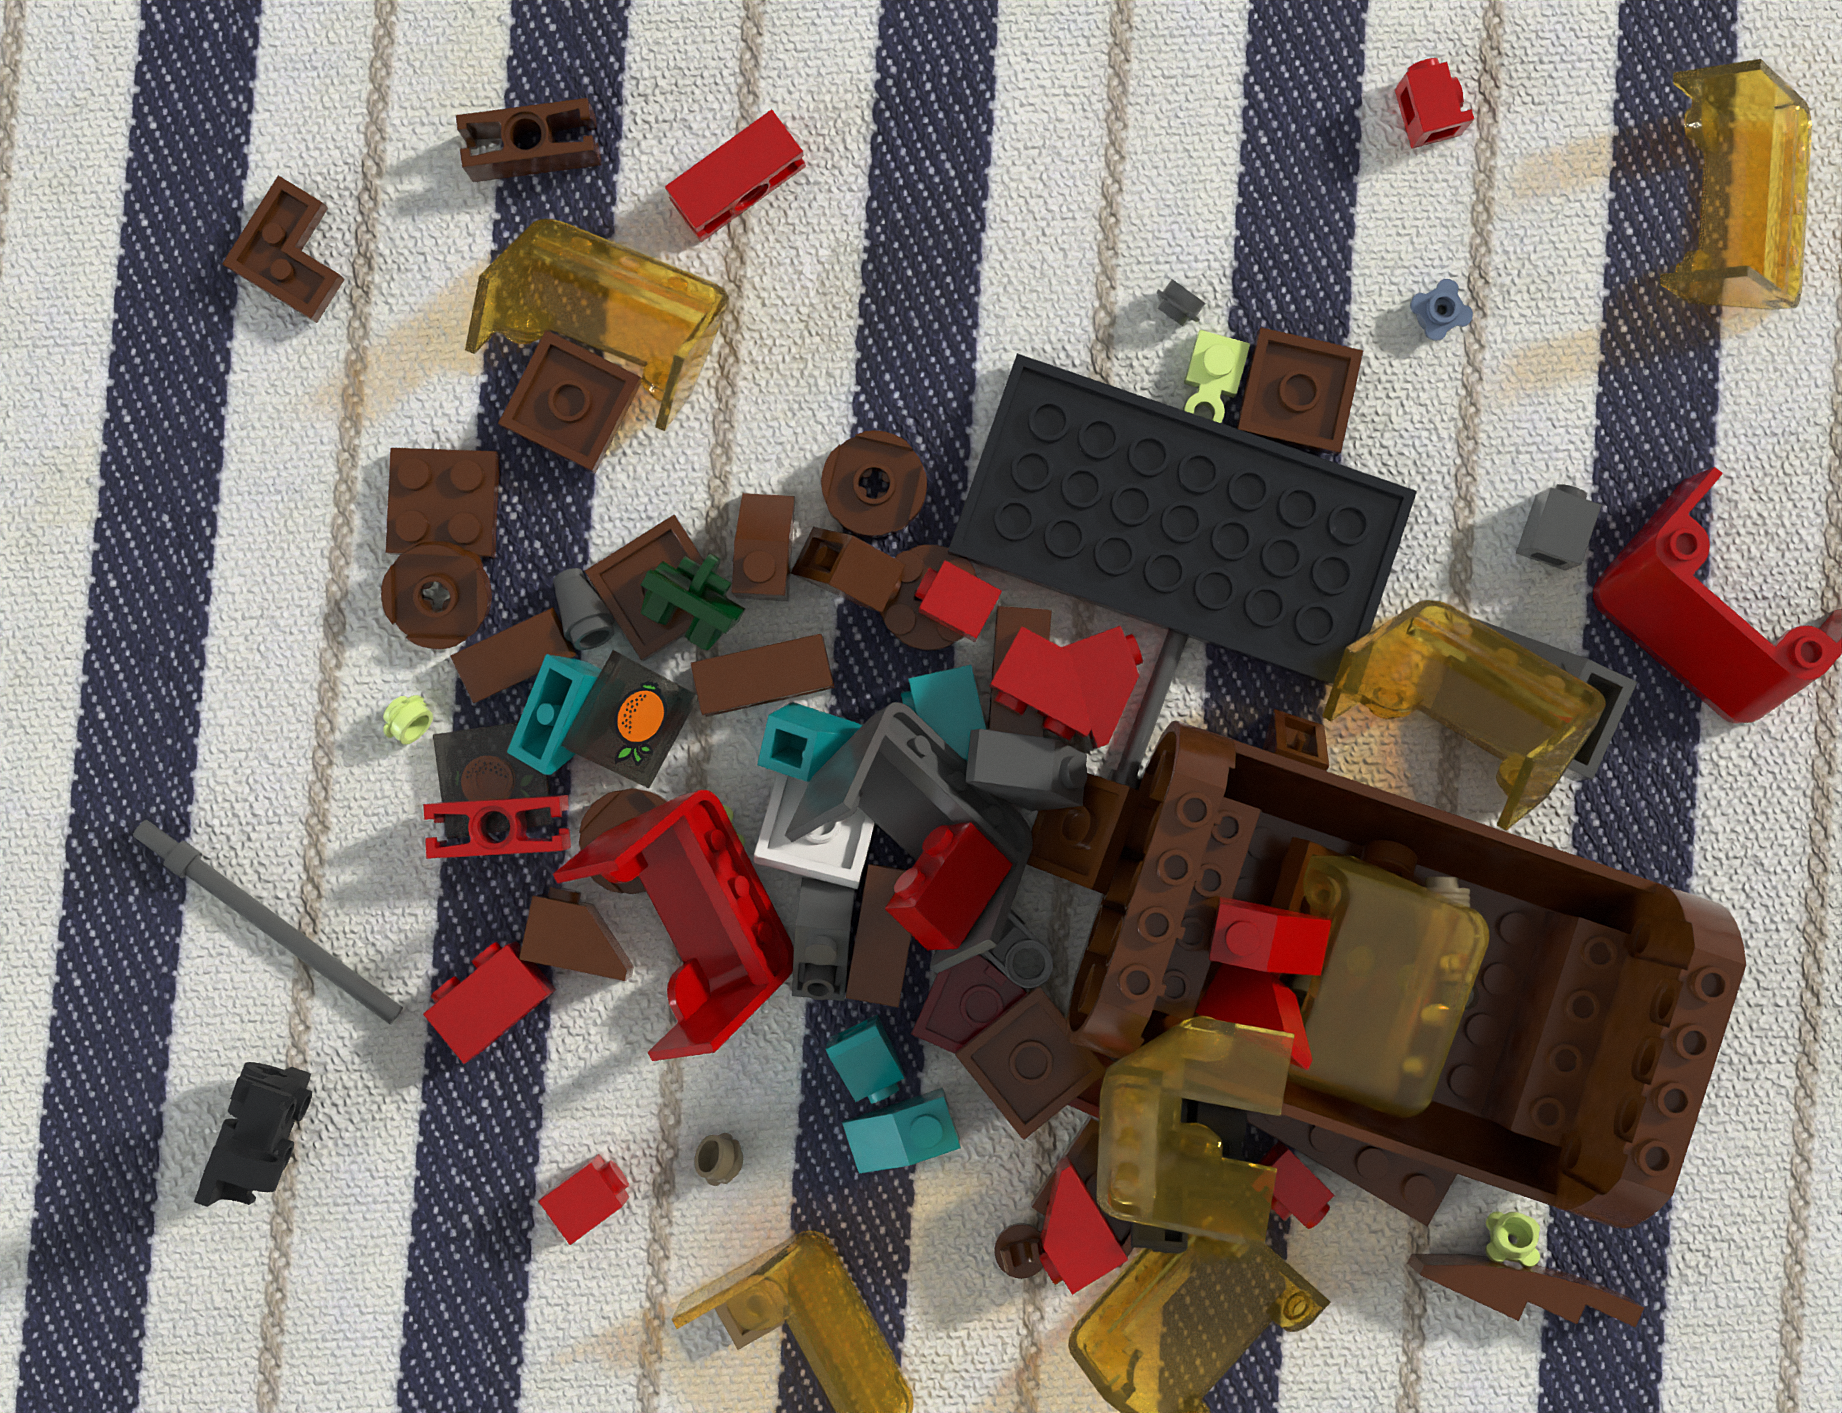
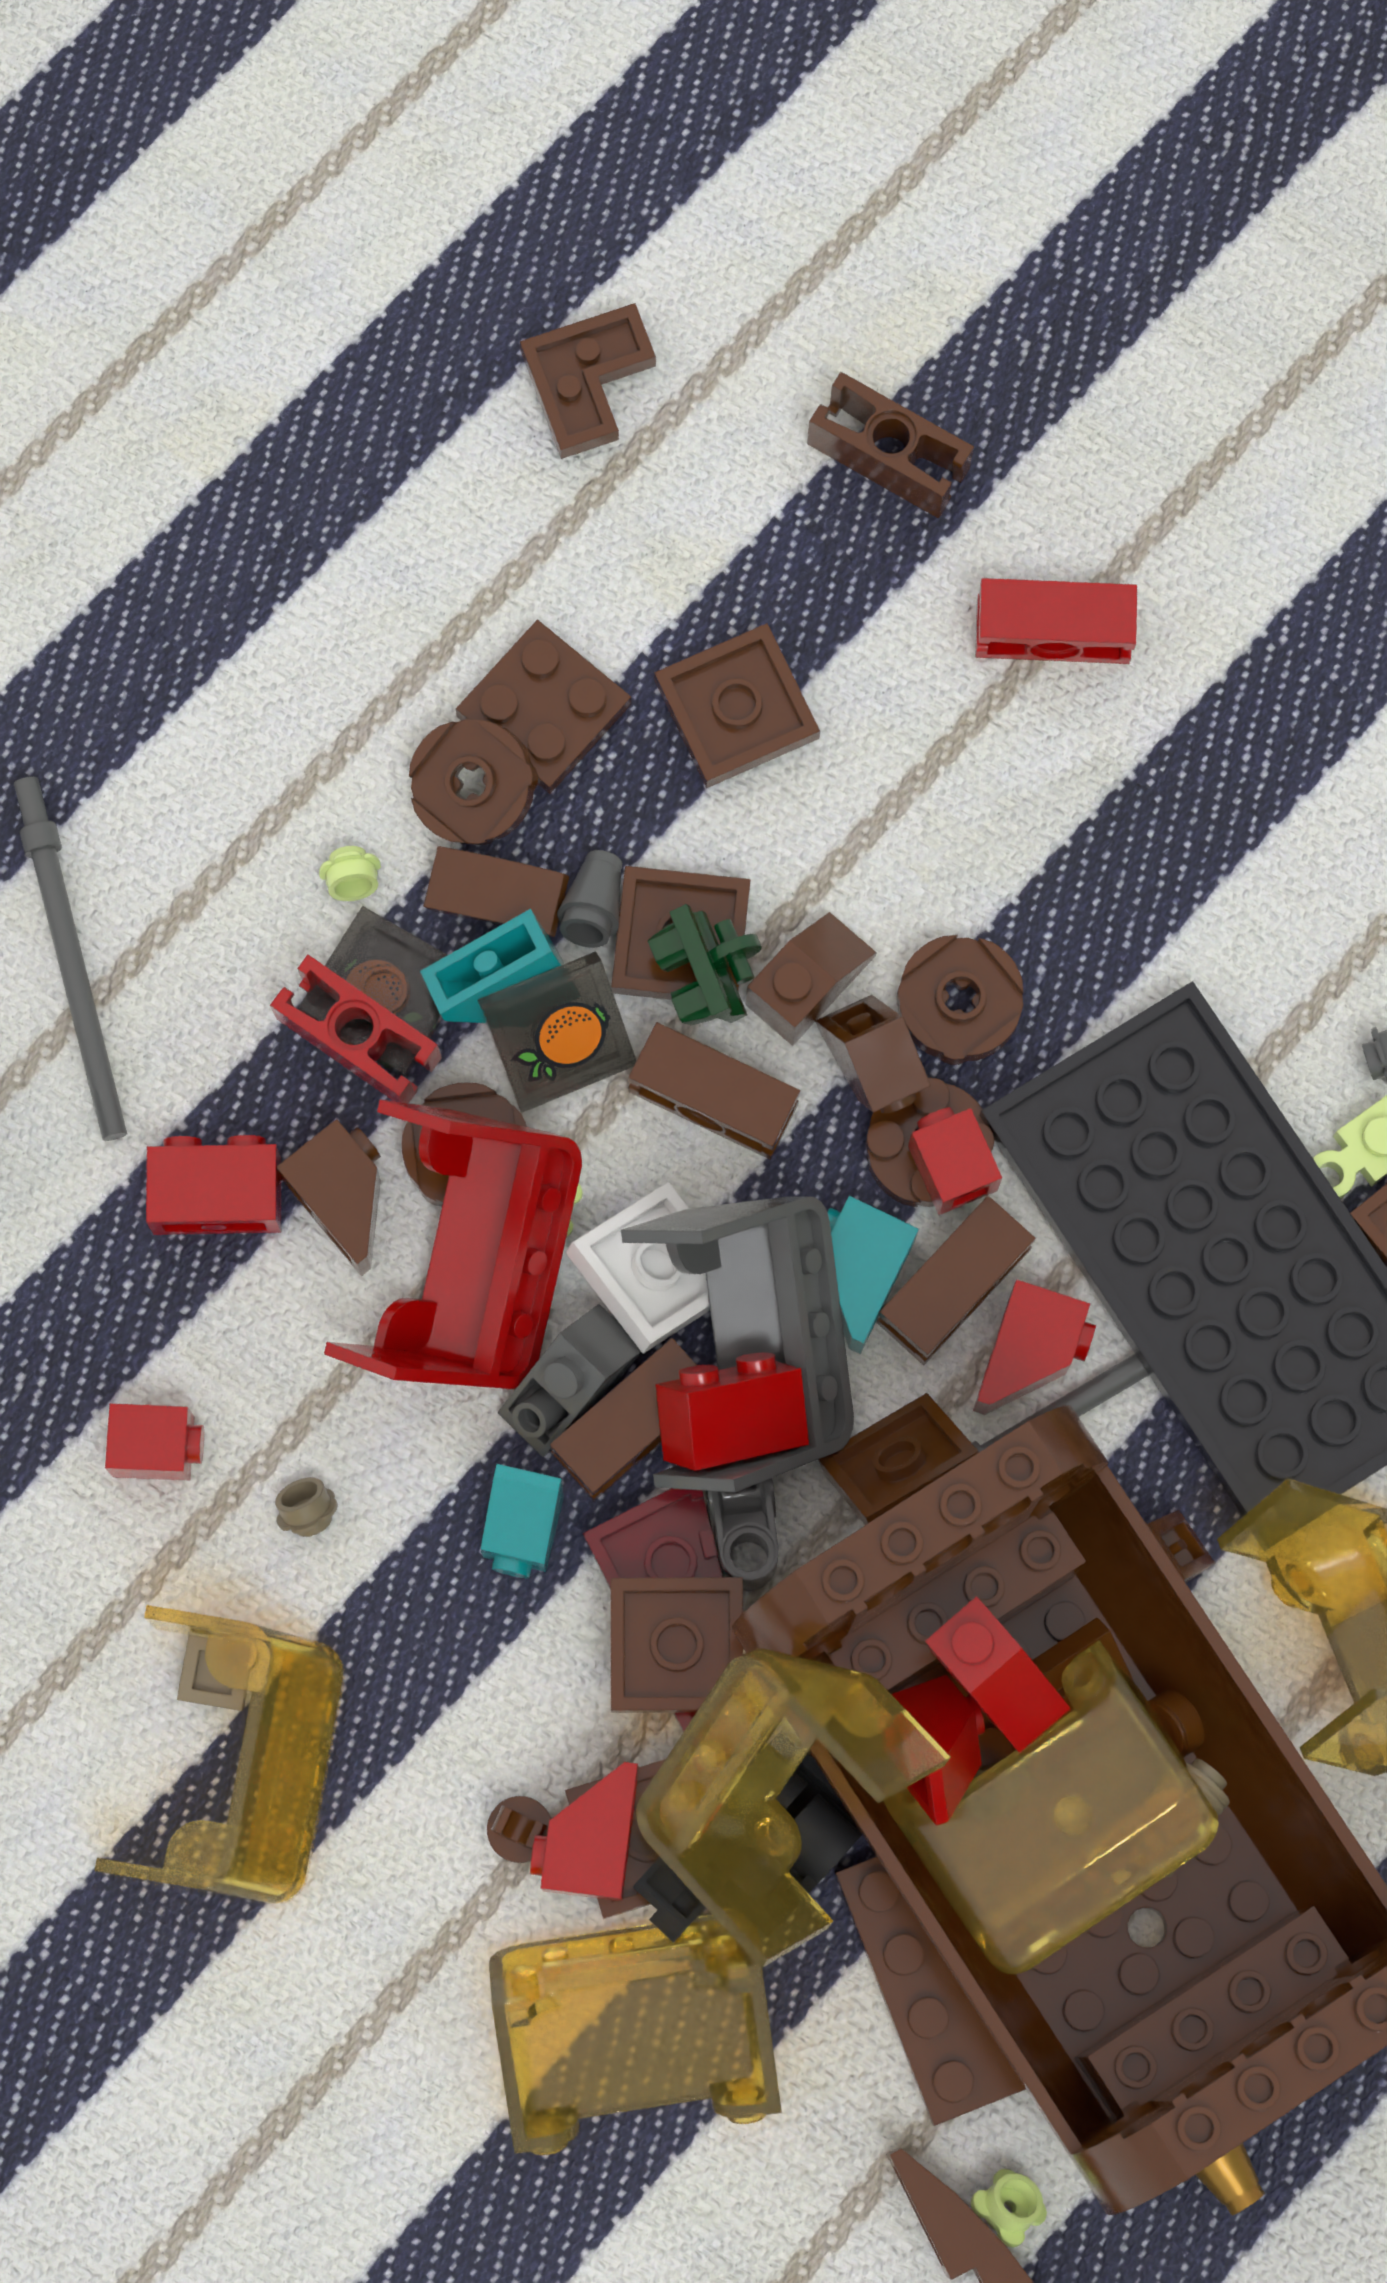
camera: 40 degrees right, 10 degrees down
(605, 298) = (842, 637): clear yellow windscreen -> none
(802, 740) = (700, 1171): teal slope -> none
(902, 1133) = (499, 1621): teal slope -> none
(1027, 769) = (893, 1366): dark grey slope -> none
(1045, 680) = (974, 1289): red slope -> none
(1296, 1188) = (832, 1978): red brick -> none

